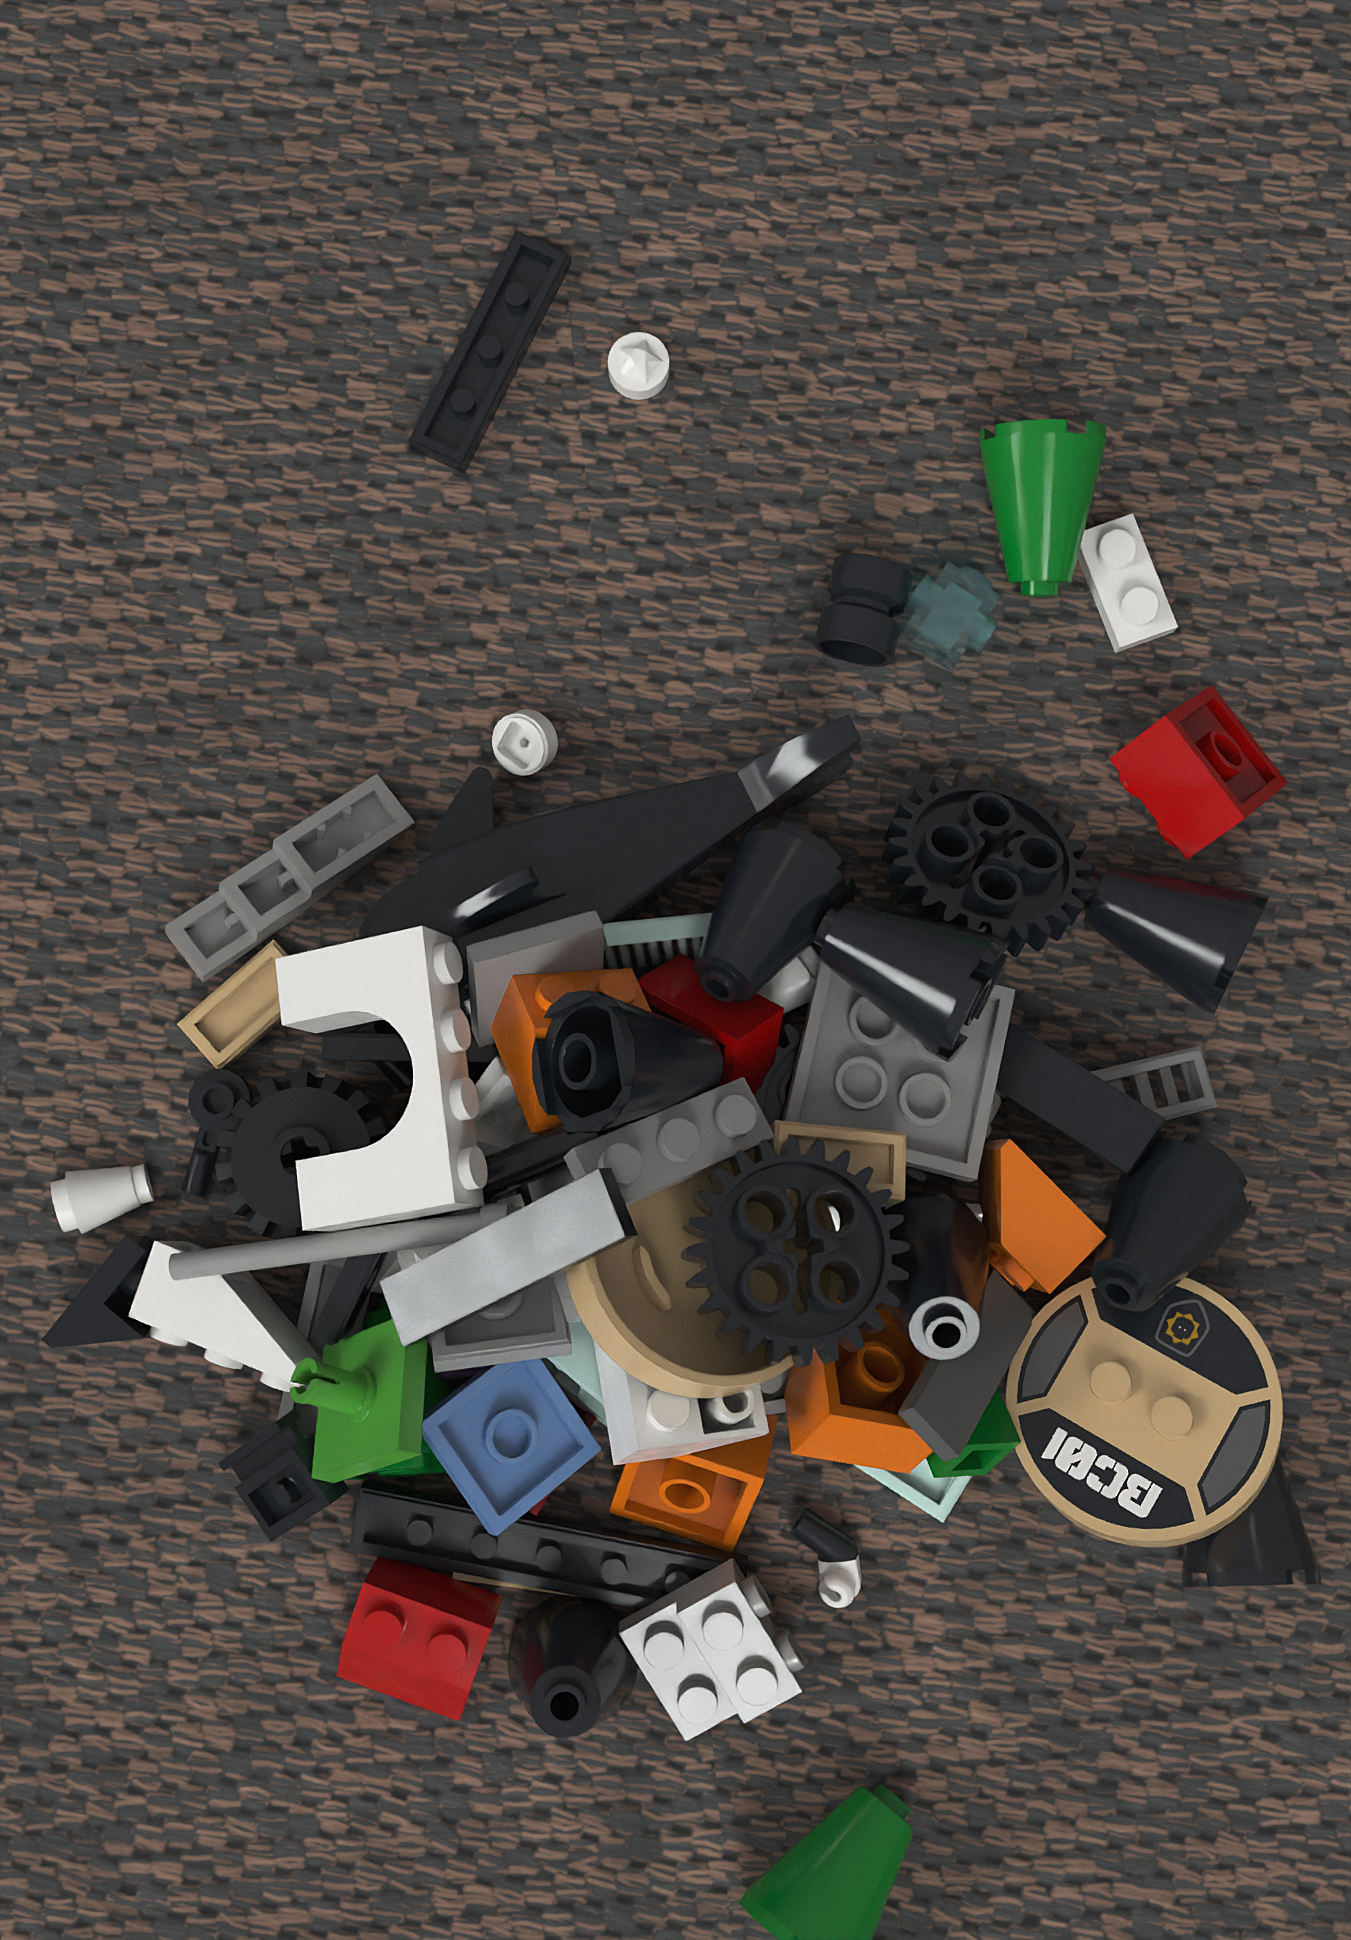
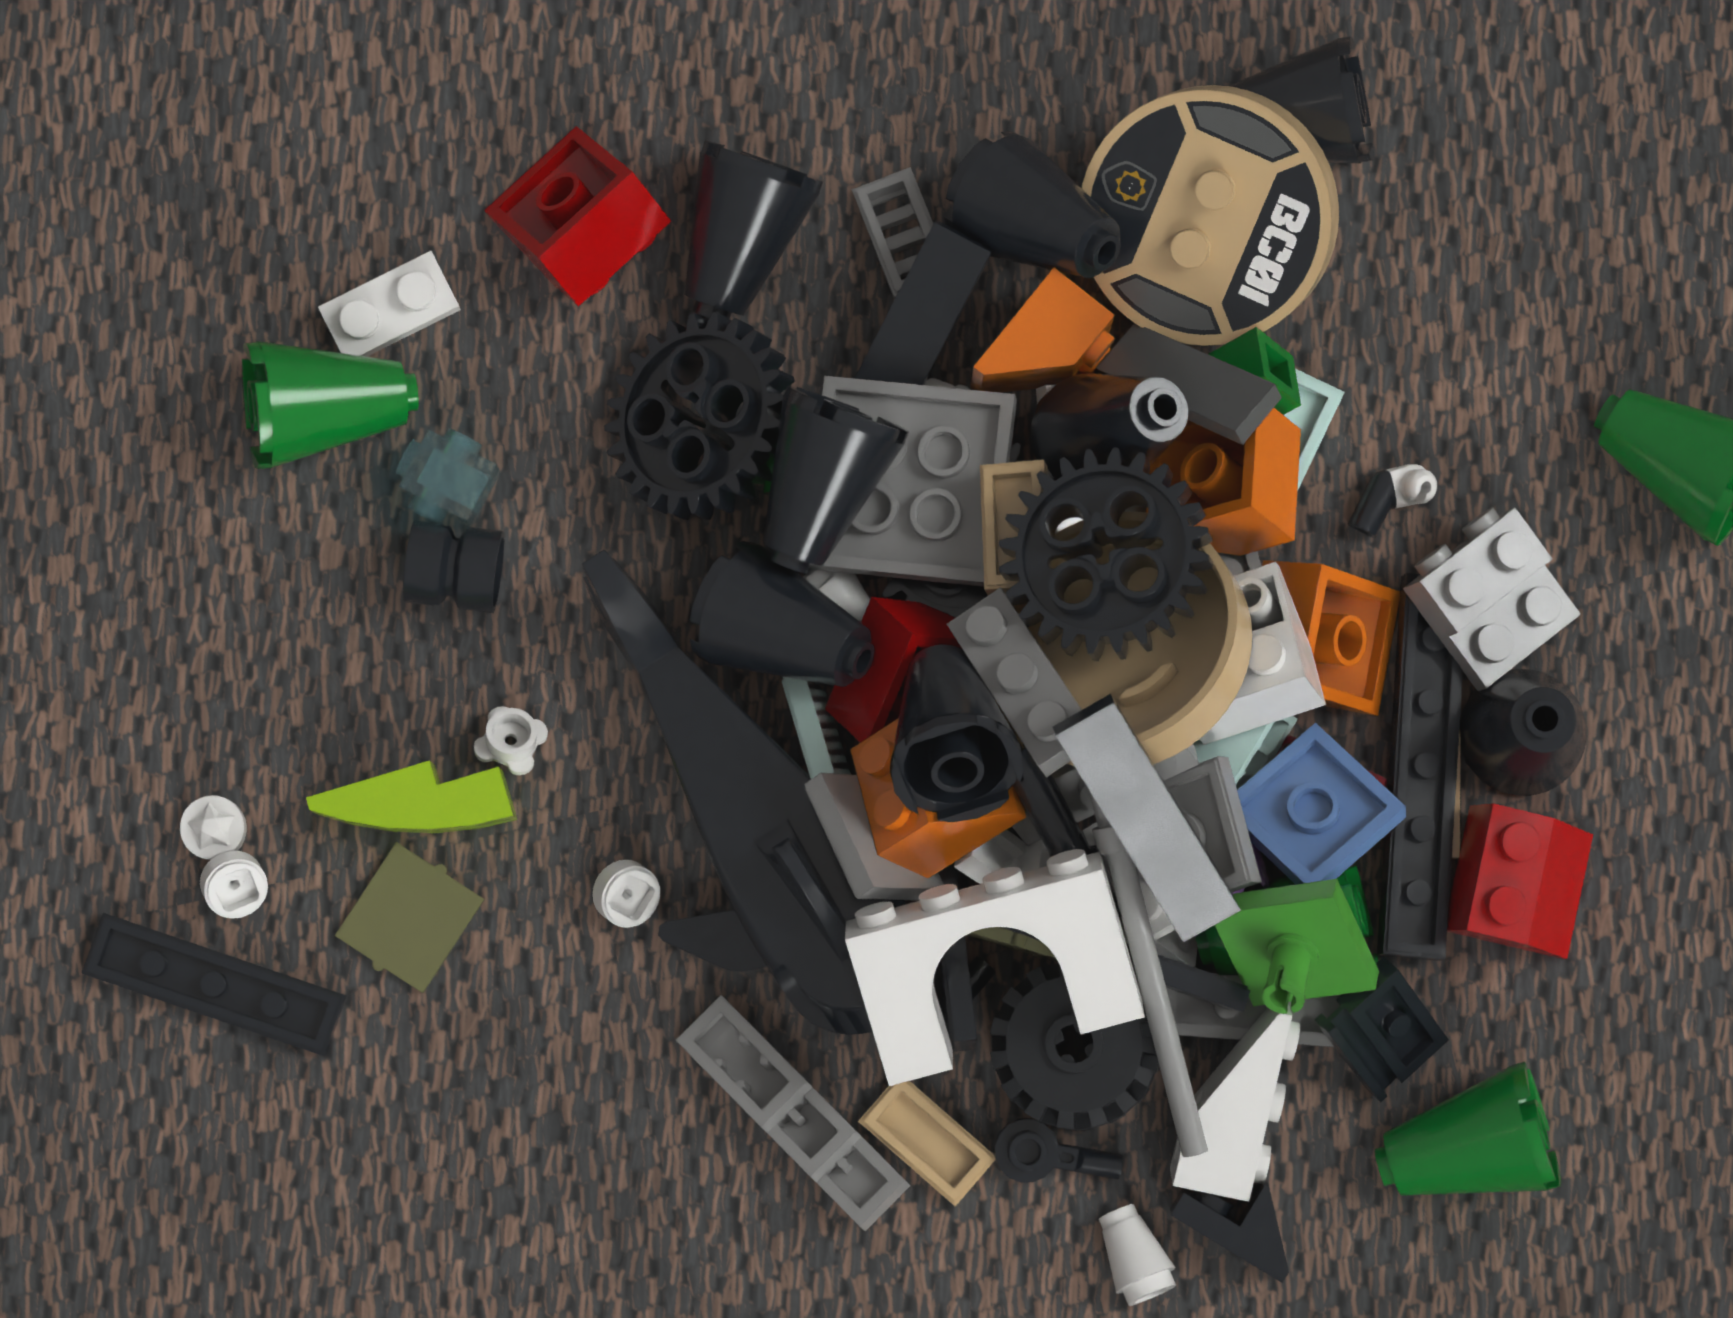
camera: 95 degrees left, 0 degrees up
(156, 1556) = (1474, 1142): none -> green cone
(530, 539) = (409, 917): none -> olive piece
(581, 375) = (233, 884): none -> white tile
(637, 555) = (418, 803): none -> lime slope
(705, 649) = (515, 723): none -> white plate

